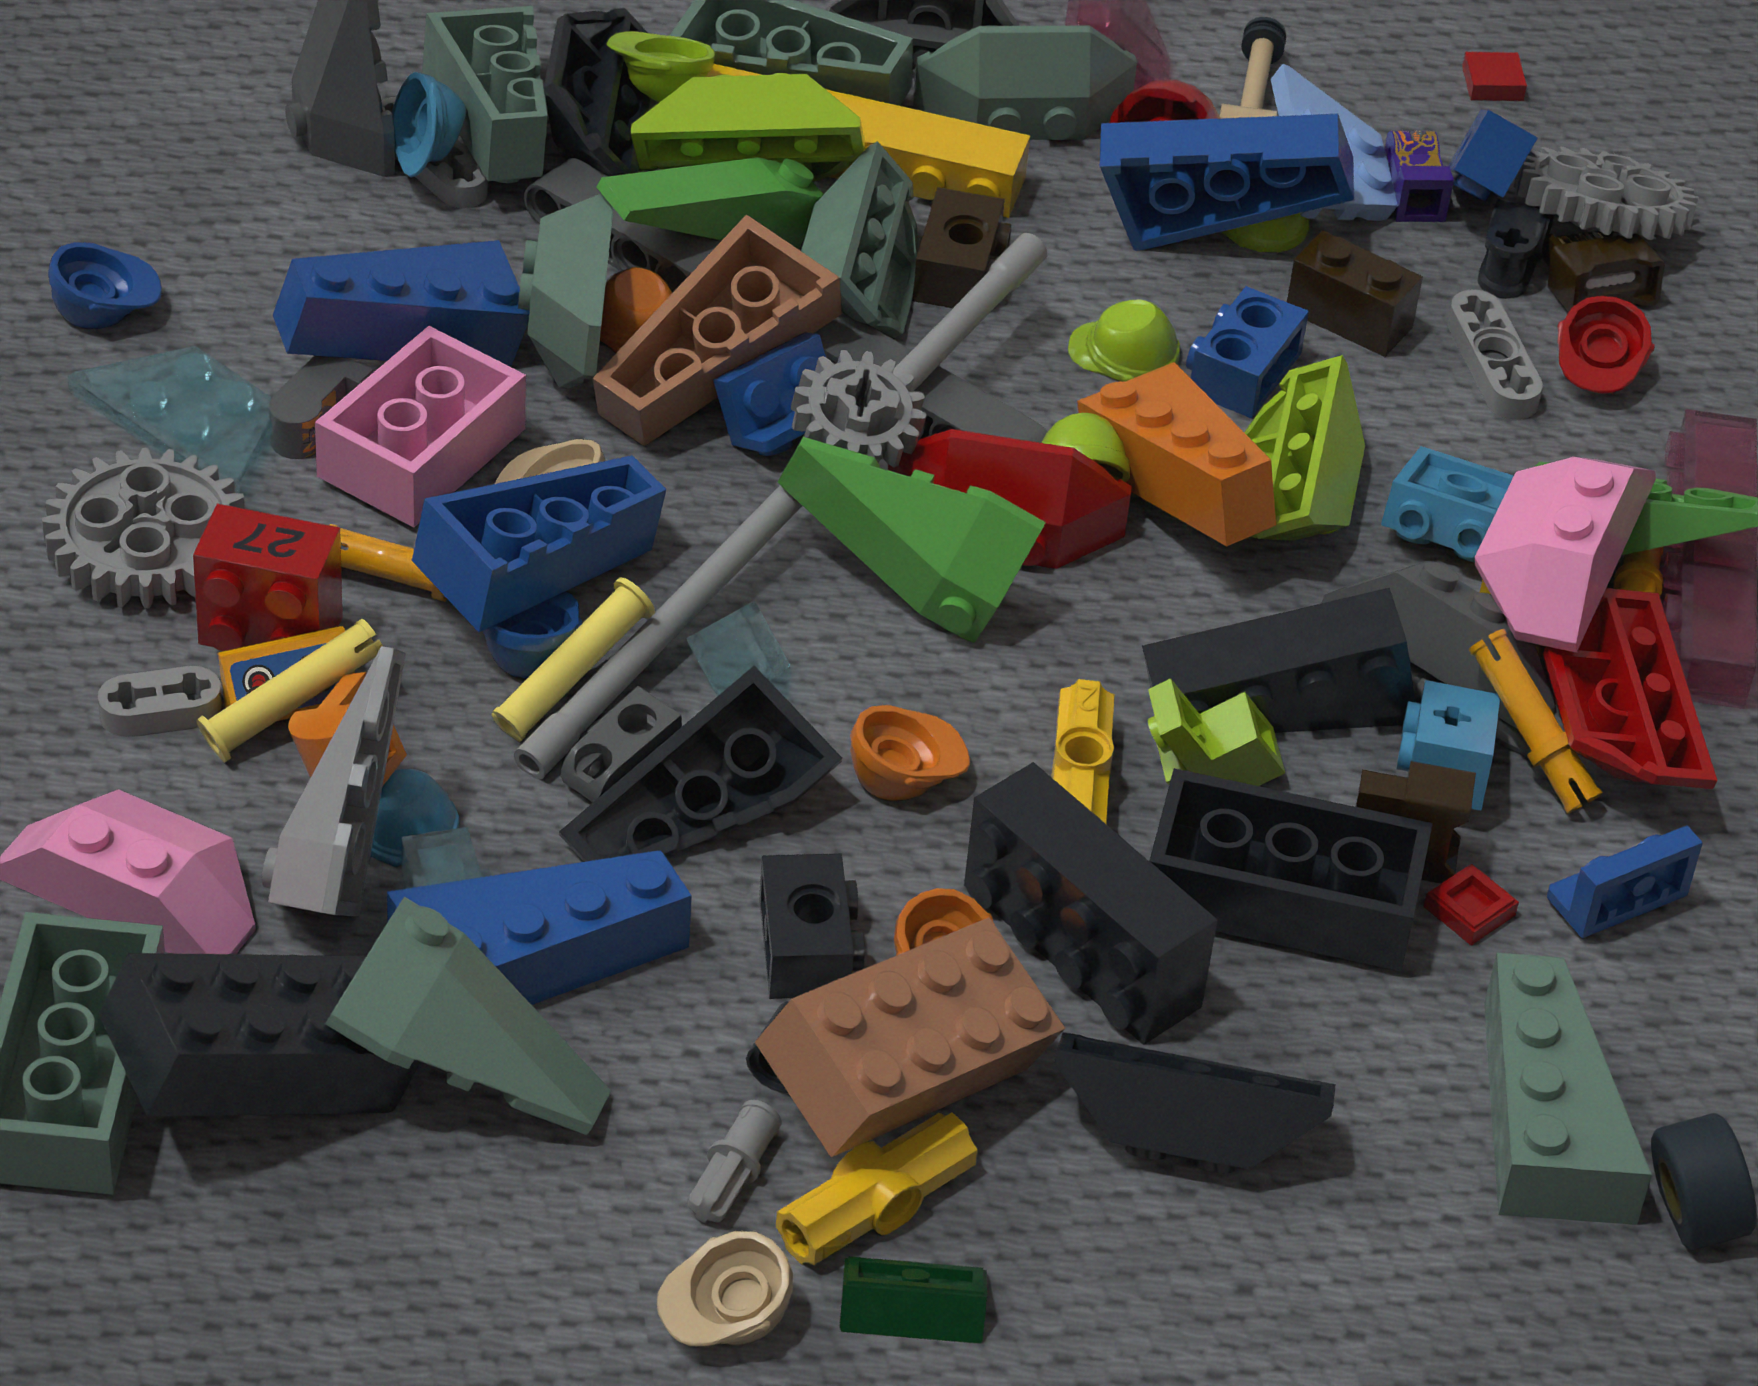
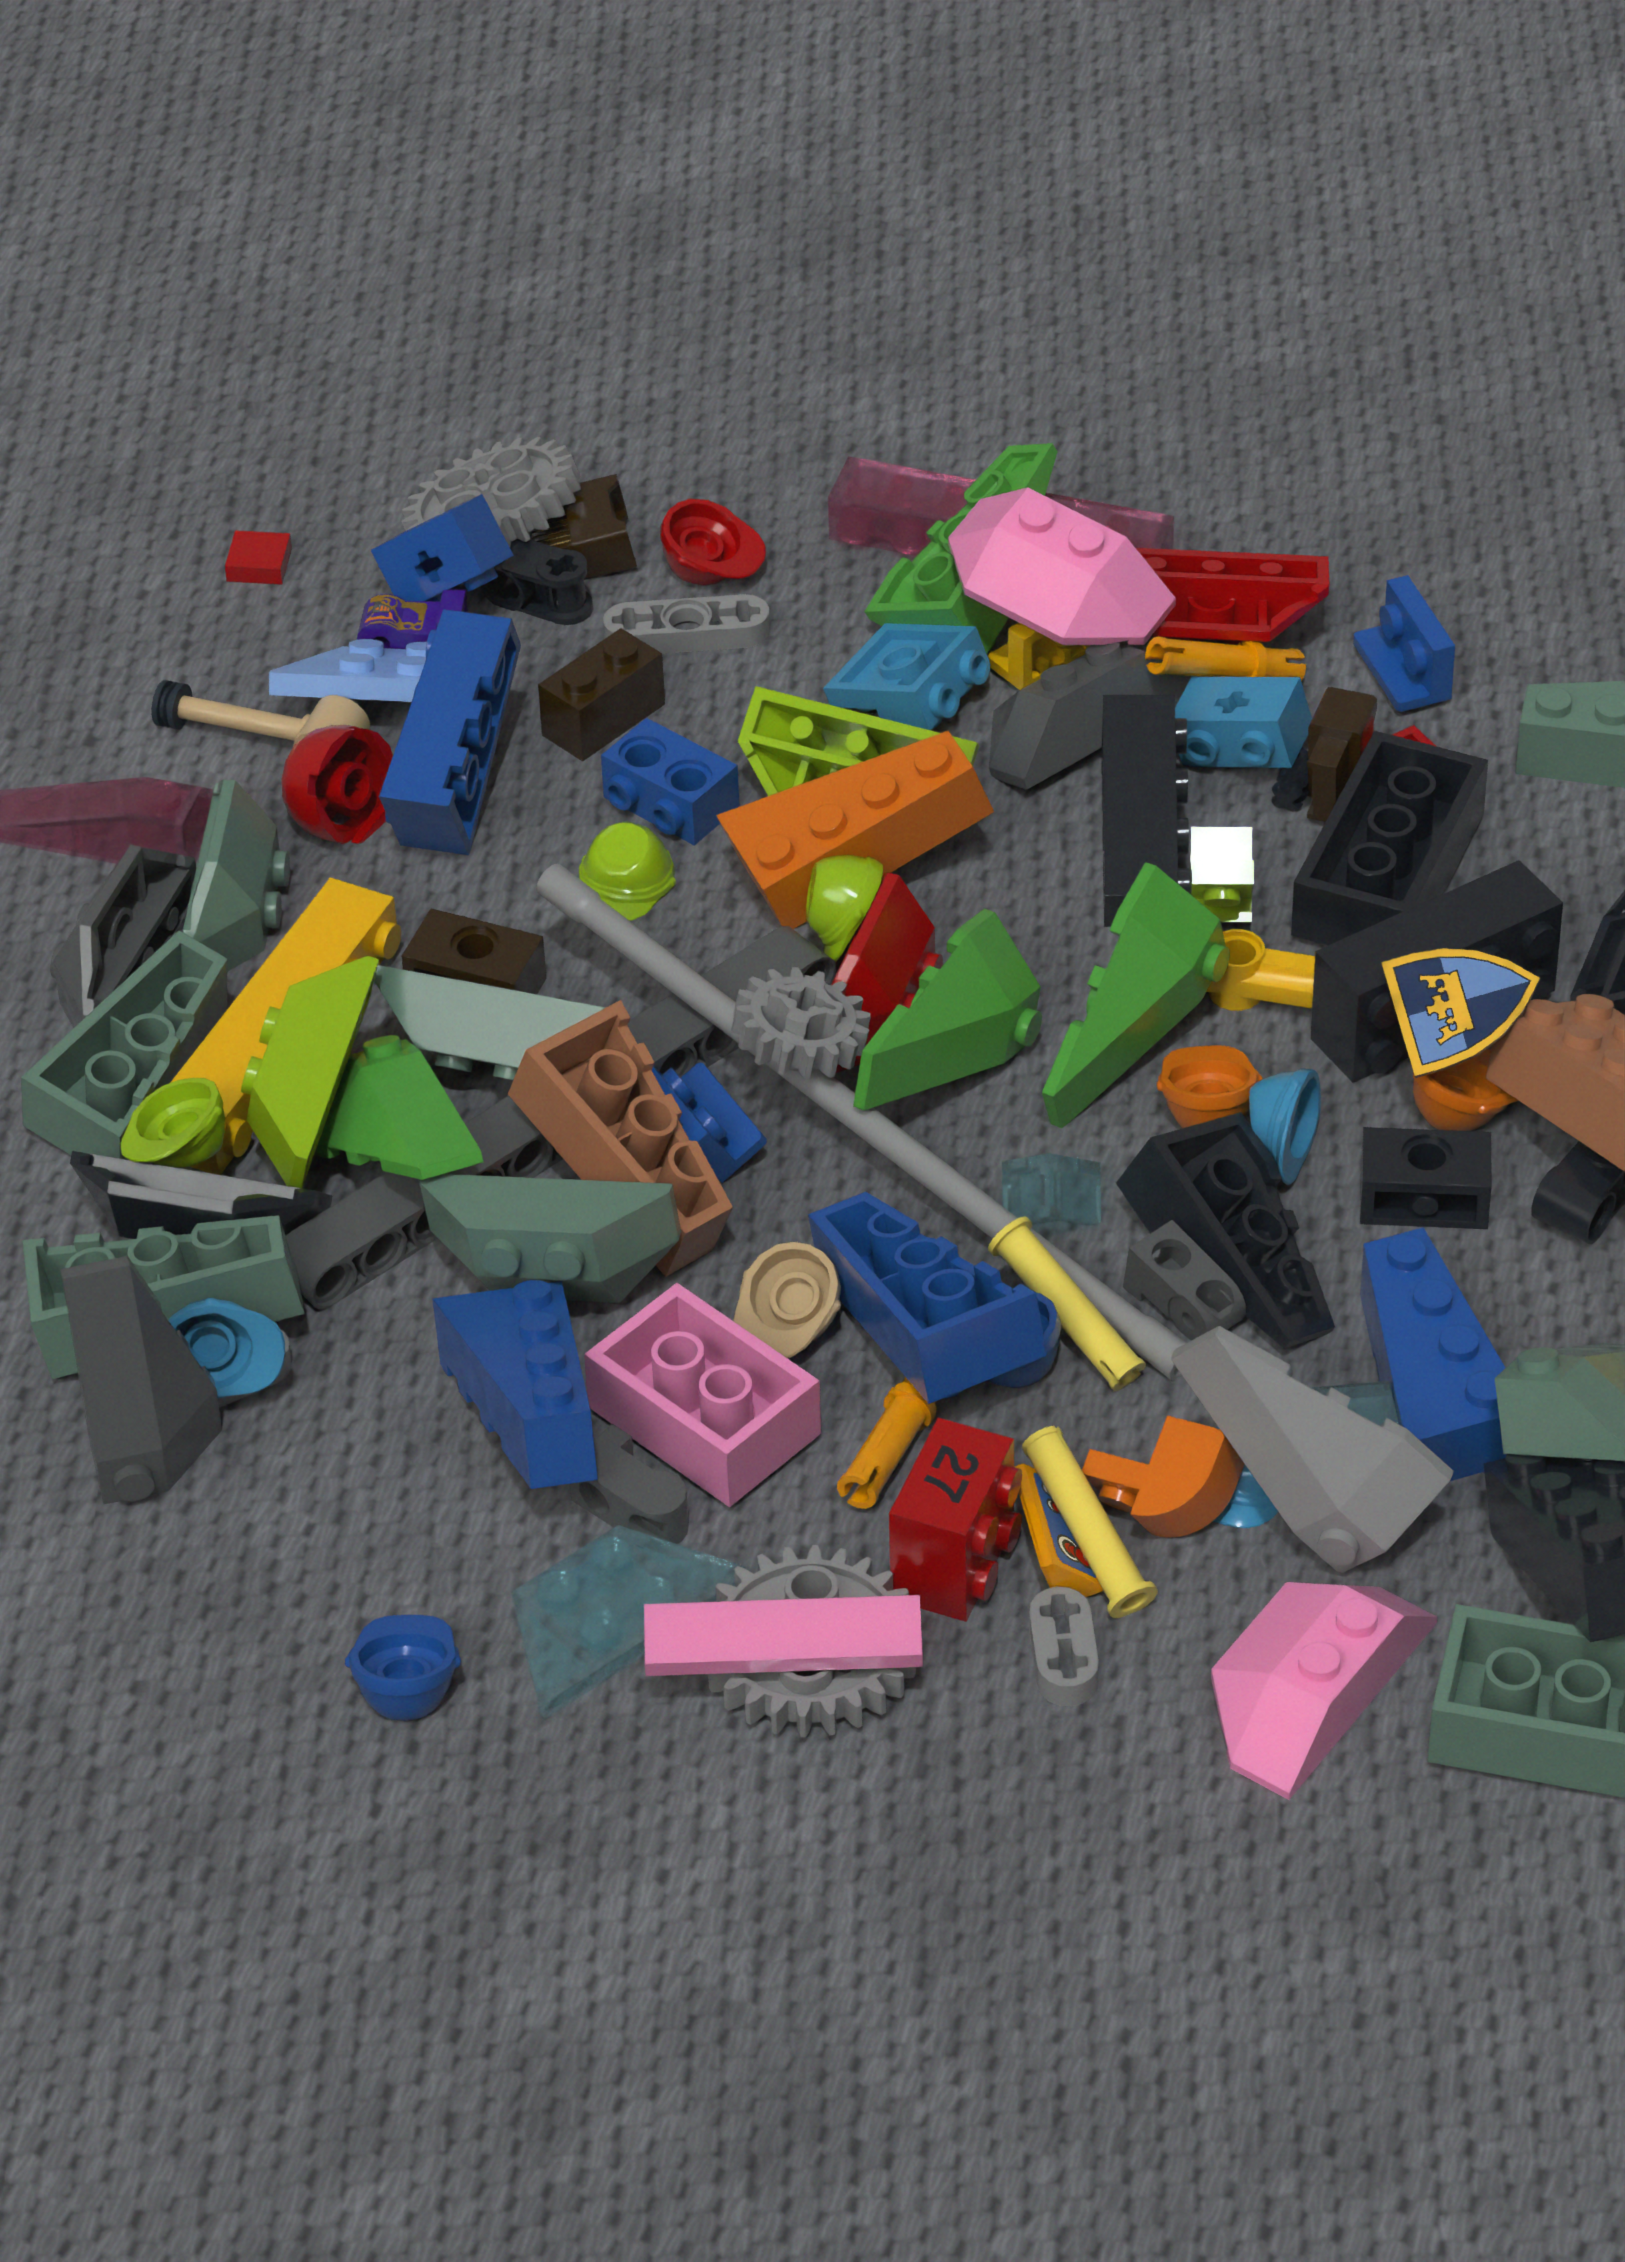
camera: 75 degrees left, 0 degrees up
(111, 483) = (782, 1635): none -> bright pink tile
(847, 806) = (1286, 1117): none -> dark azure hat
(979, 875) = (1455, 1003): none -> shield
(993, 656) = (1154, 978): none -> bright green wedge

